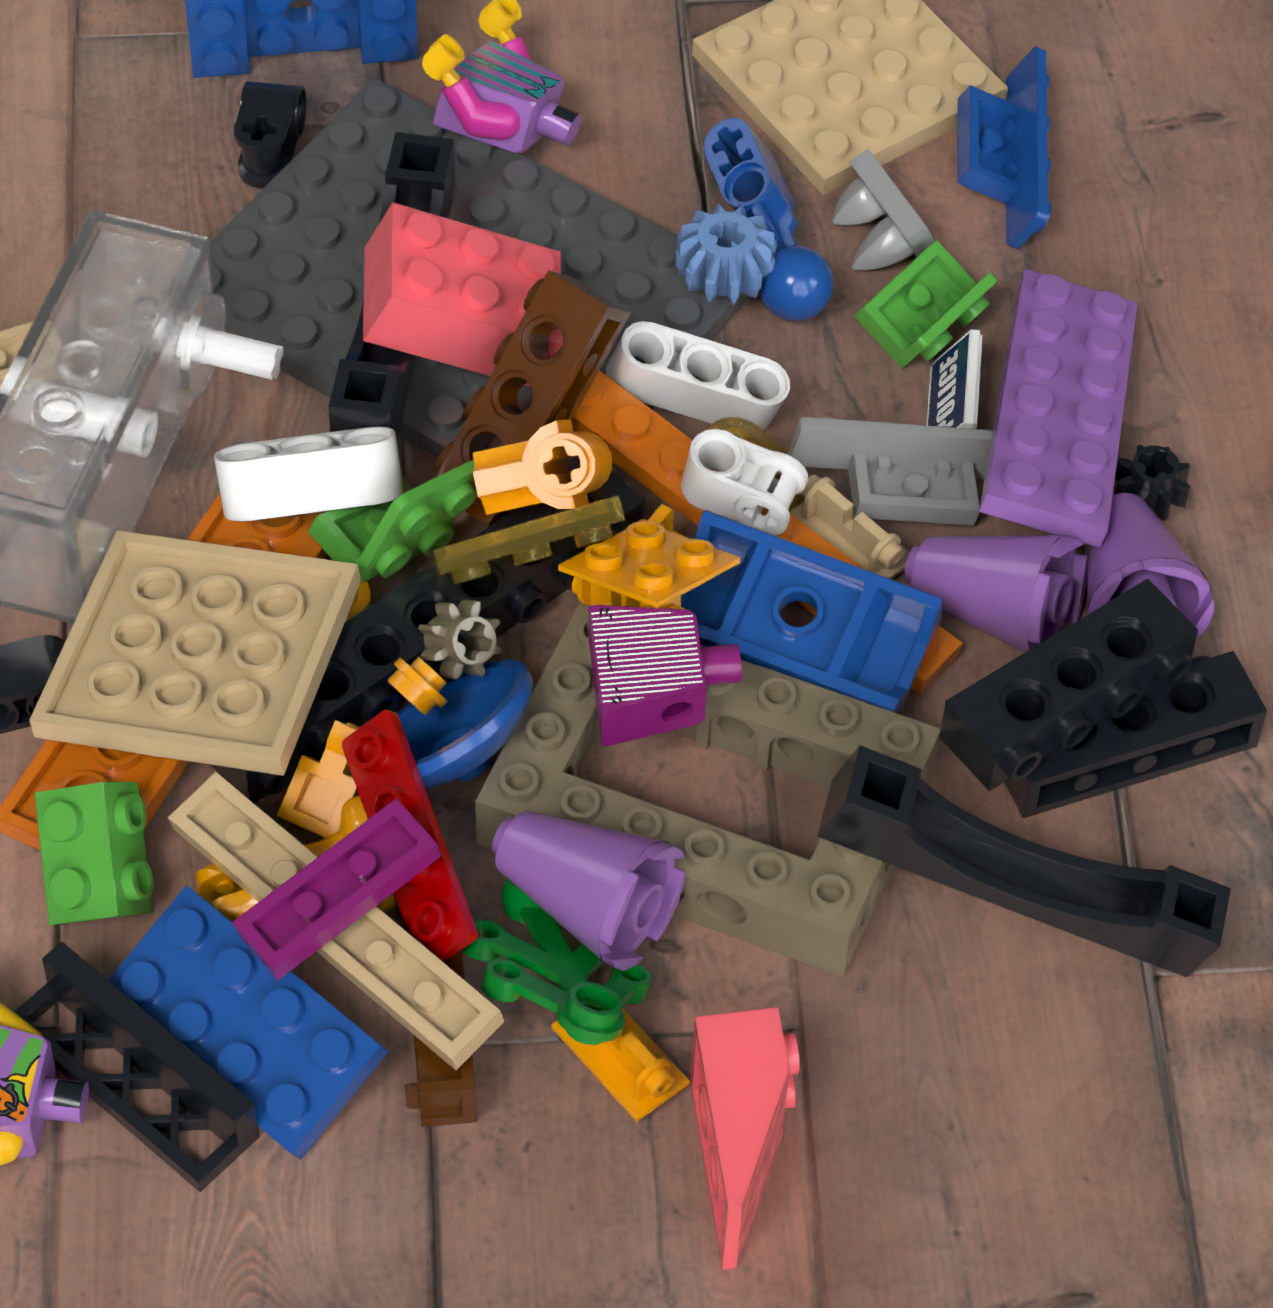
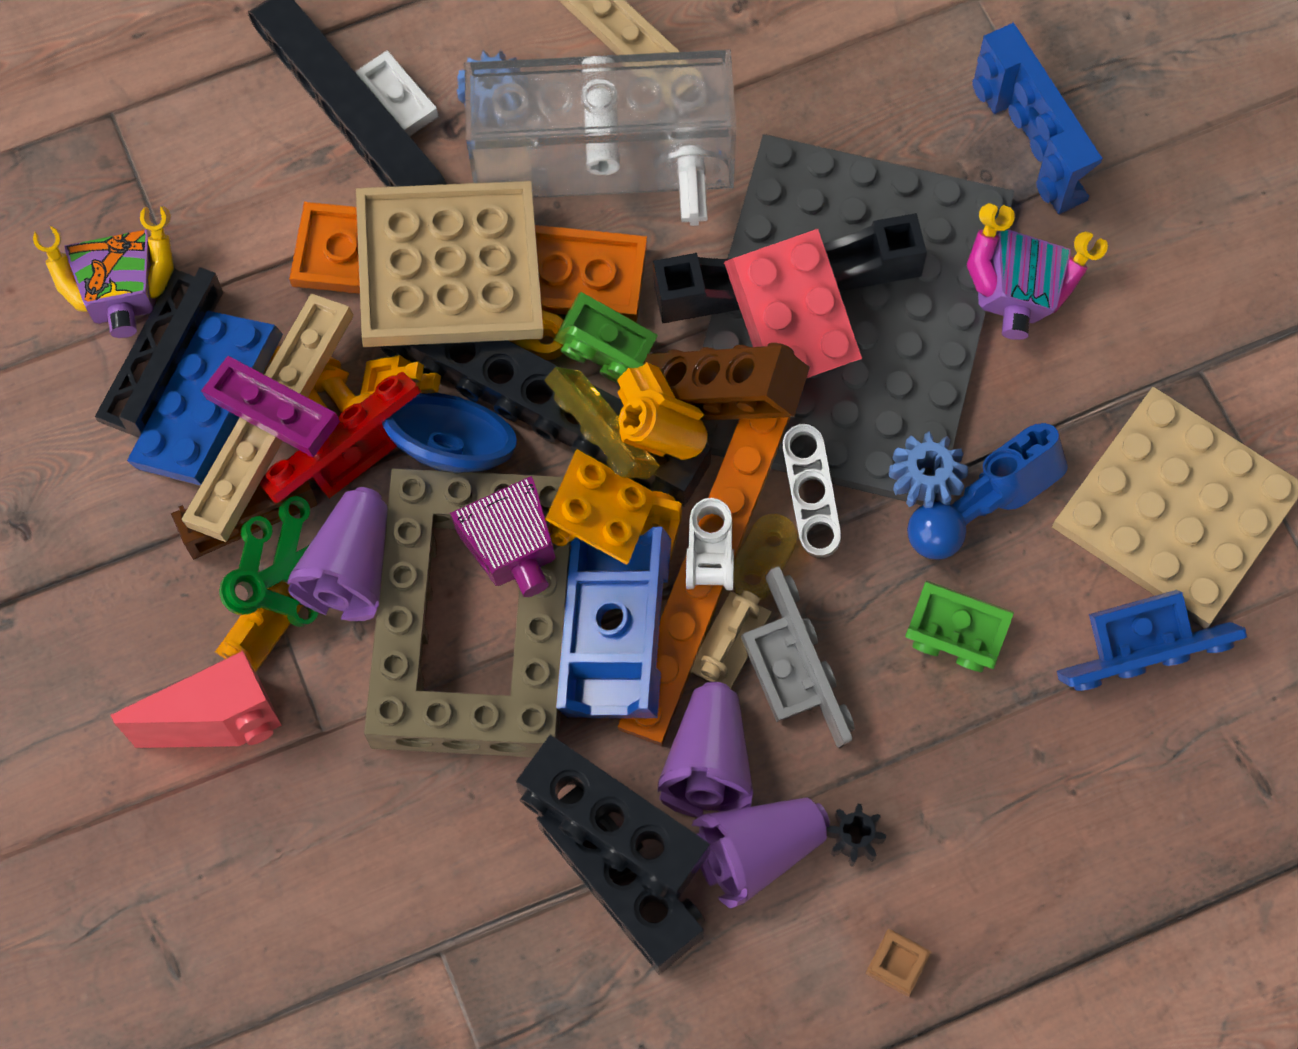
camera: 75 degrees right, 15 degrees up
(94, 852) = (291, 268): bright green bracket -> none
(268, 129) = (935, 140): black piece -> none
(309, 473) = (613, 274): white beam -> none
(418, 684) = (471, 402): light orange plate -> none
(477, 641) = (512, 413): dark tan gear -> none
(869, 198) = (1049, 568): light grey tile -> none
(897, 818) = (450, 832): black arch -> none
(956, 384) = (882, 677): slope -> none
(1060, 408) = (885, 746): medium lavender plate -> none

